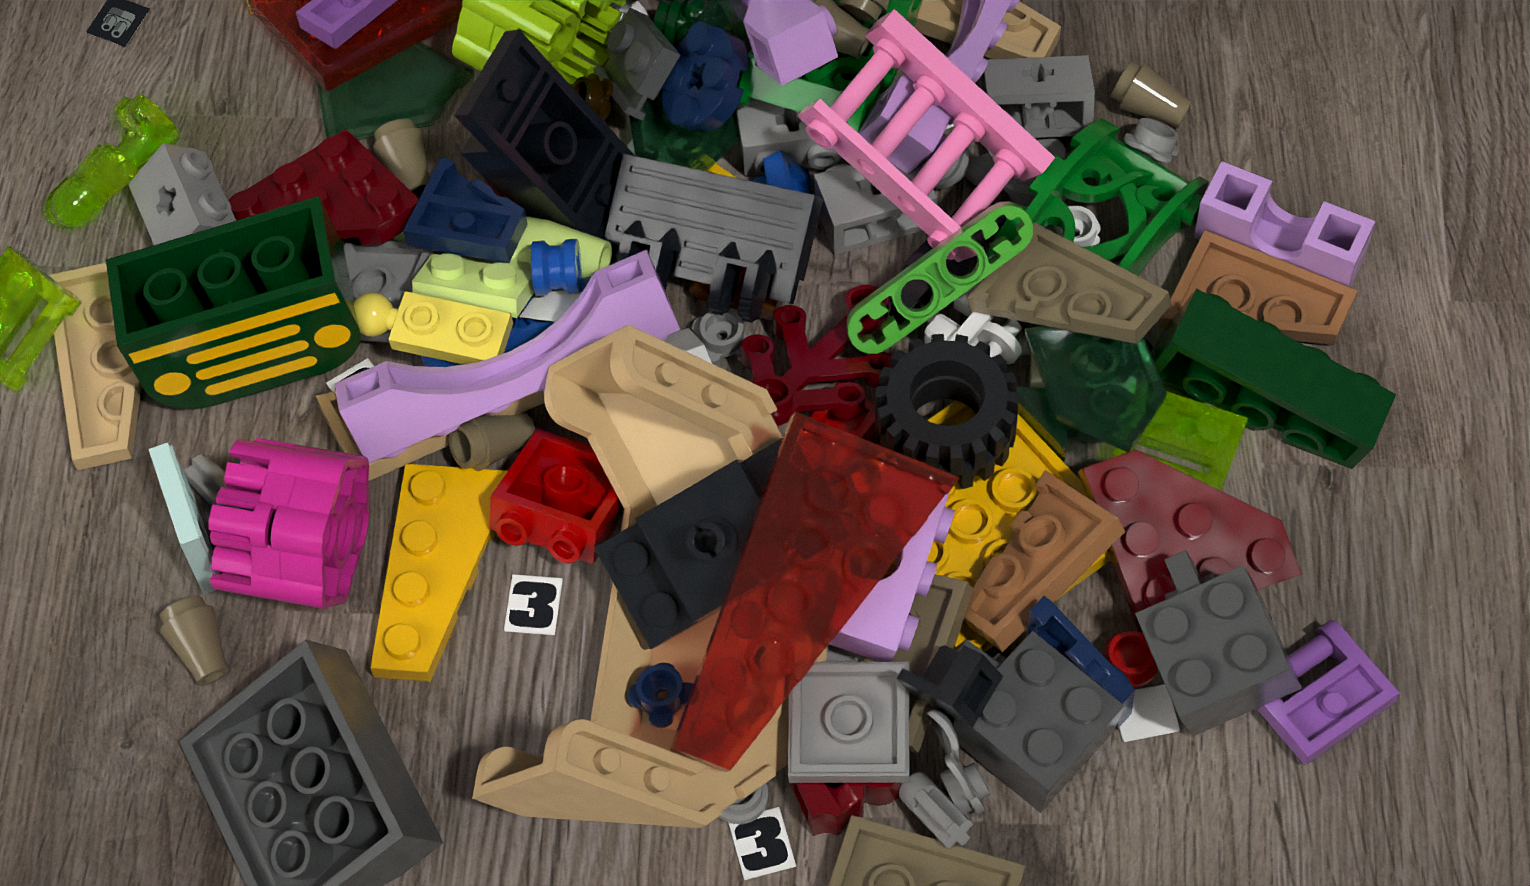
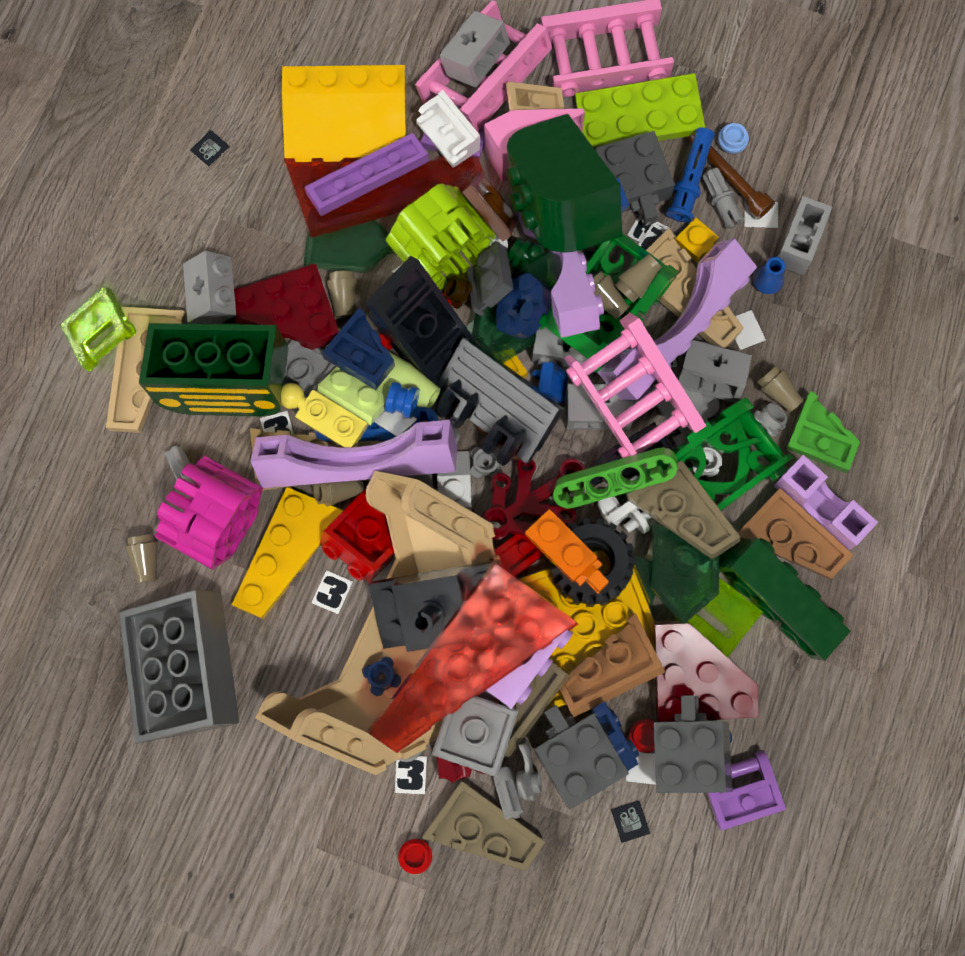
camera: 15 degrees right, 15 degrees up
(109, 168) = (173, 250): clear neon green piece -> none
(184, 514) = (153, 483): light aqua tile -> none
(902, 391) = (566, 551): none -> orange hinge
(955, 683) = (537, 735): black panel -> none
(1074, 35) = (751, 333): none -> white sticker
(1154, 801) = (630, 821): none -> black sticker
(1244, 140) = (822, 436): none -> bright green wing

